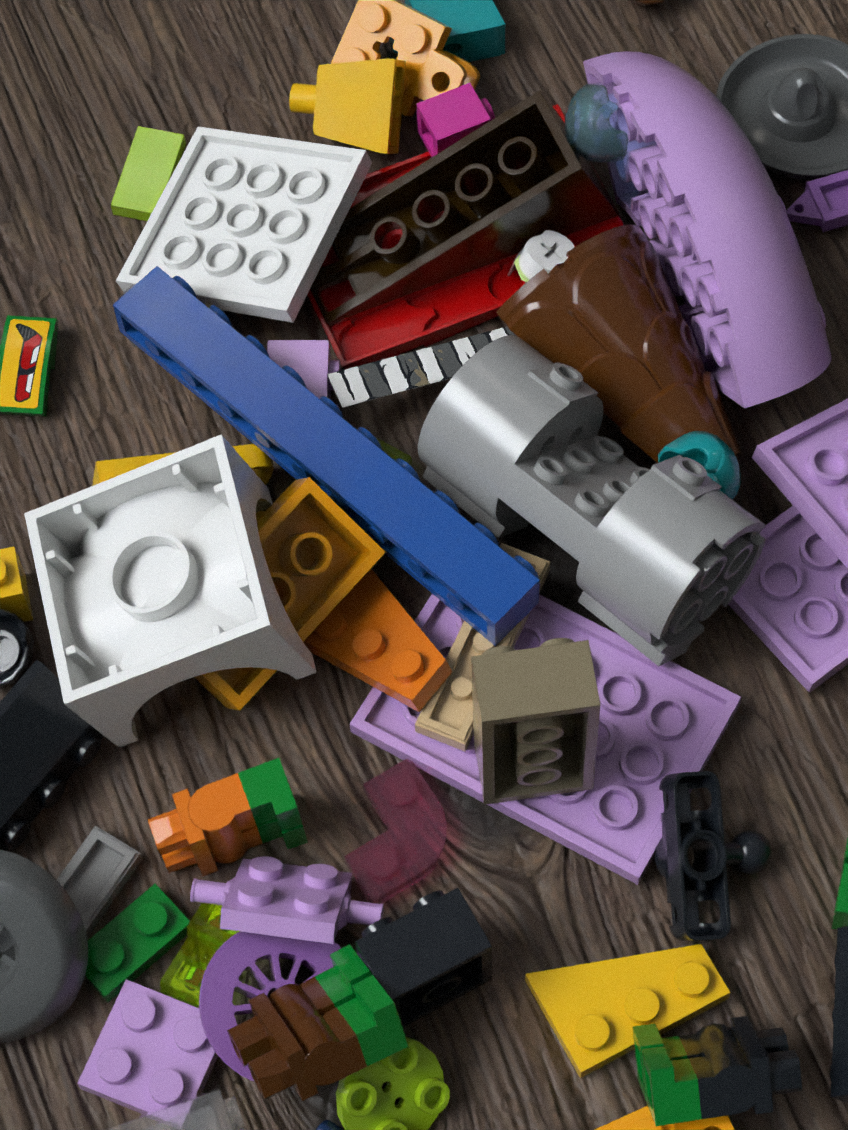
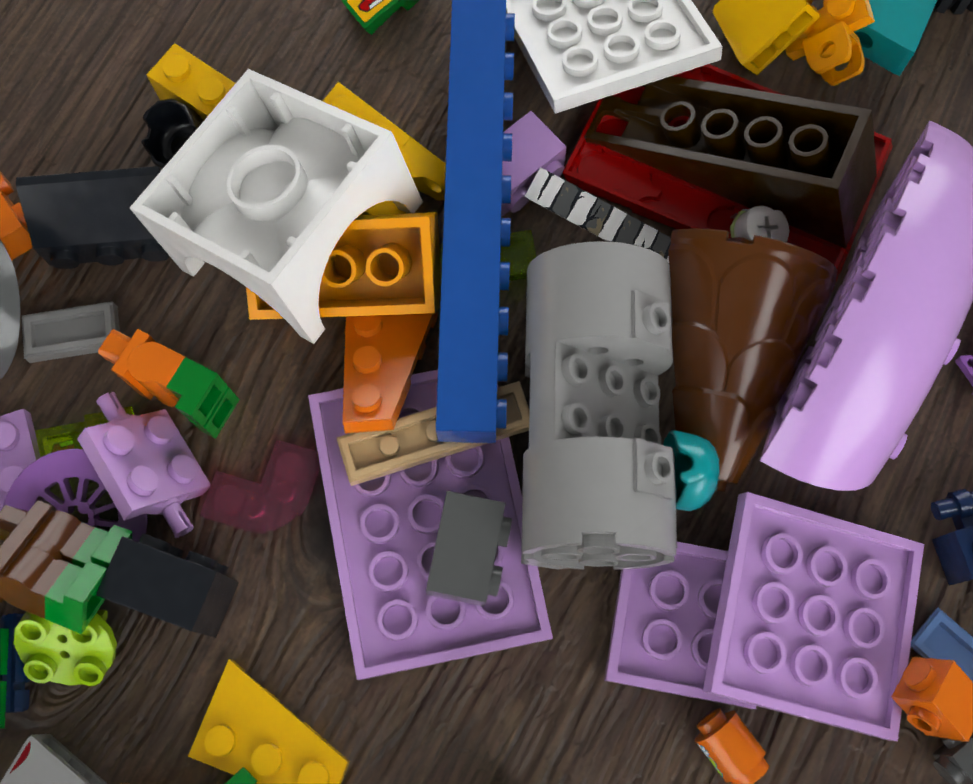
camera: 45 degrees right, 10 degrees up
(134, 941) = (53, 389): green plate -> none
(451, 117) = (809, 78): dark pink brick -> none
(535, 720) = (366, 517): dark tan brick -> none
(589, 125) = (876, 166): clear light blue hair -> none
(631, 705) = (467, 549): none -> dark grey brick
(704, 833) = (423, 692): black piece -> none

